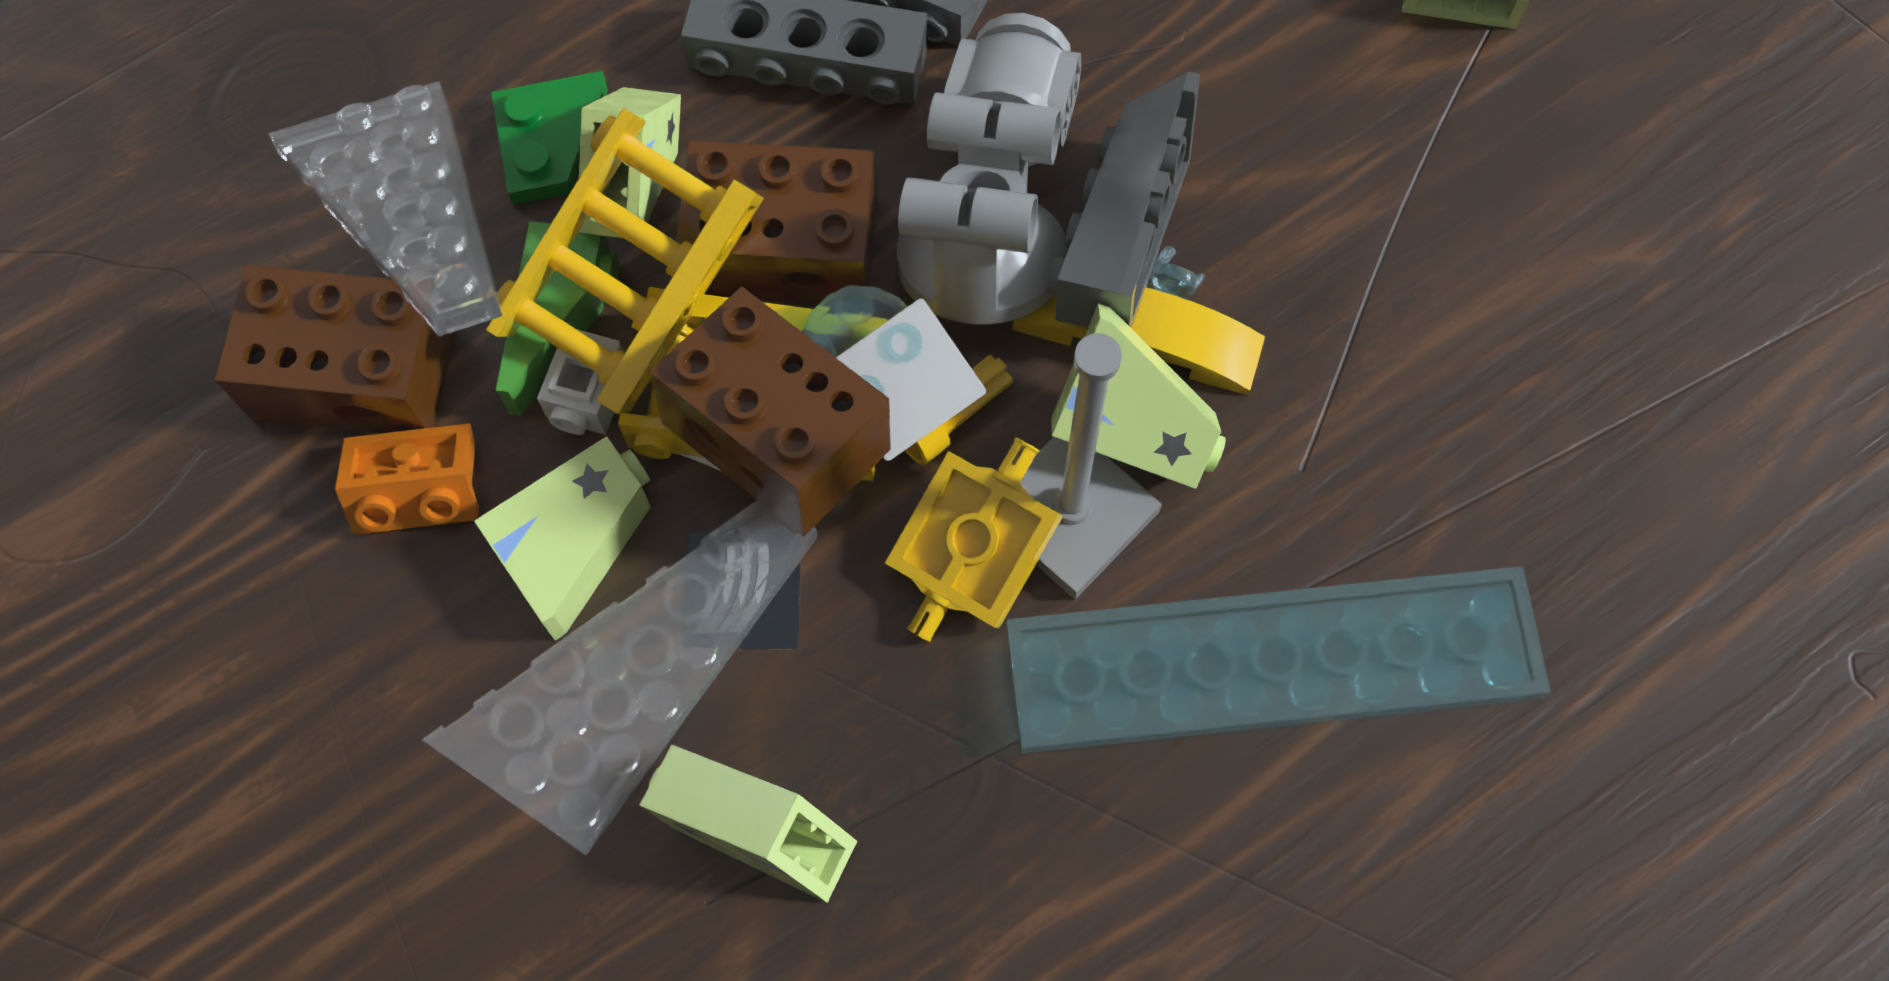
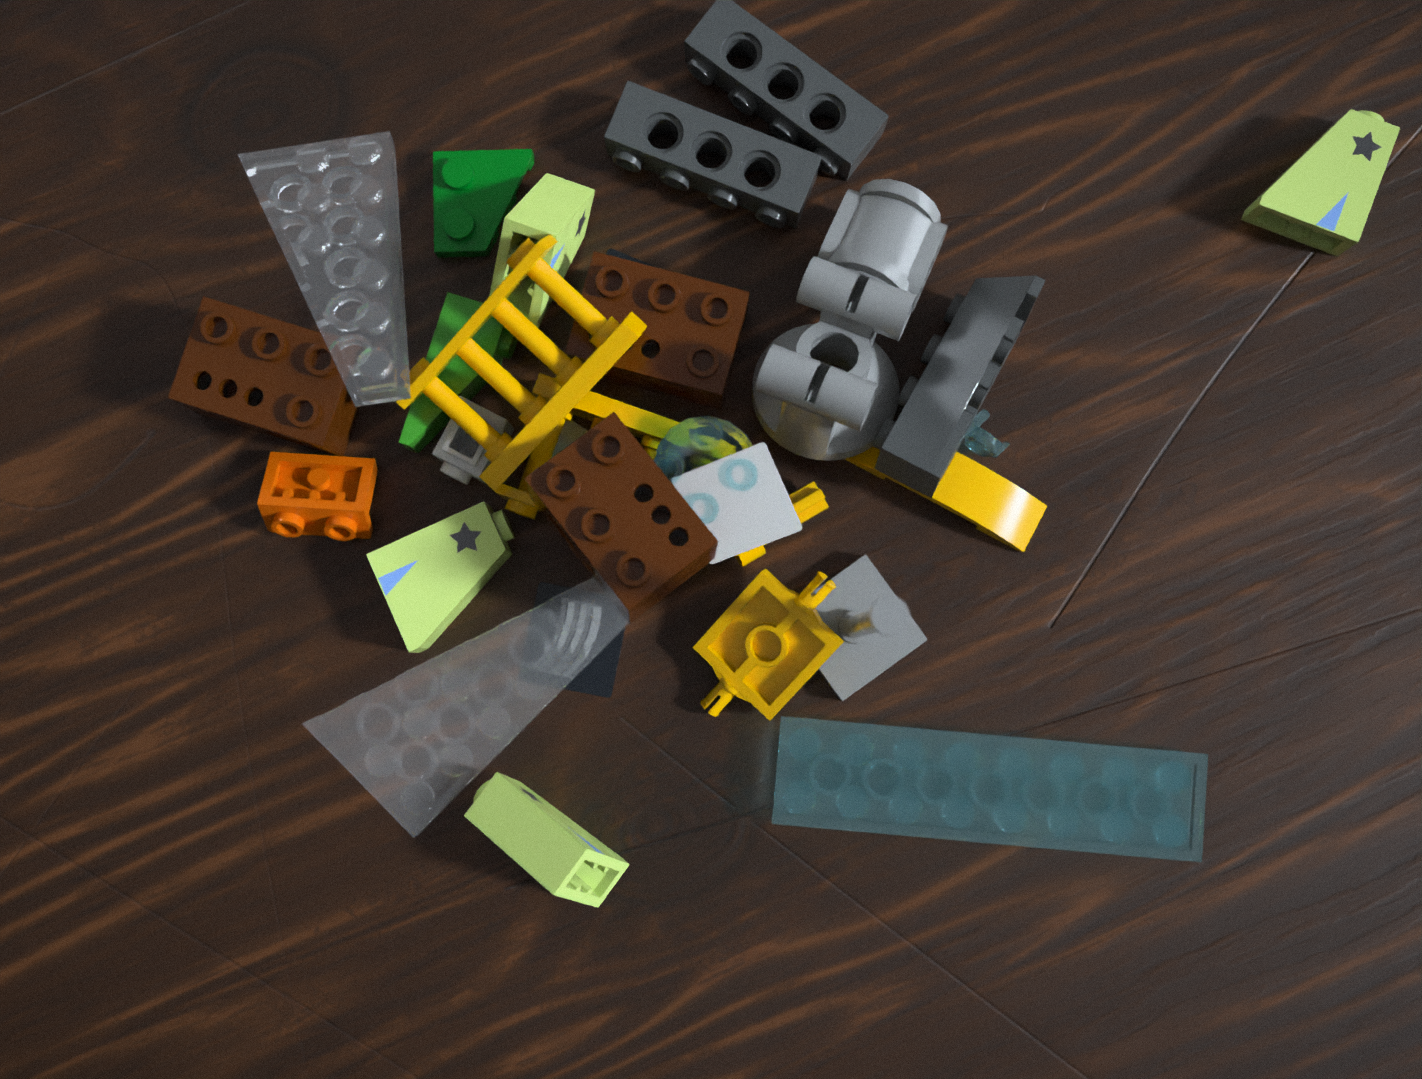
camera: 10 degrees right, 15 degrees up
(1148, 411) = (923, 561): yellowish green slope -> none

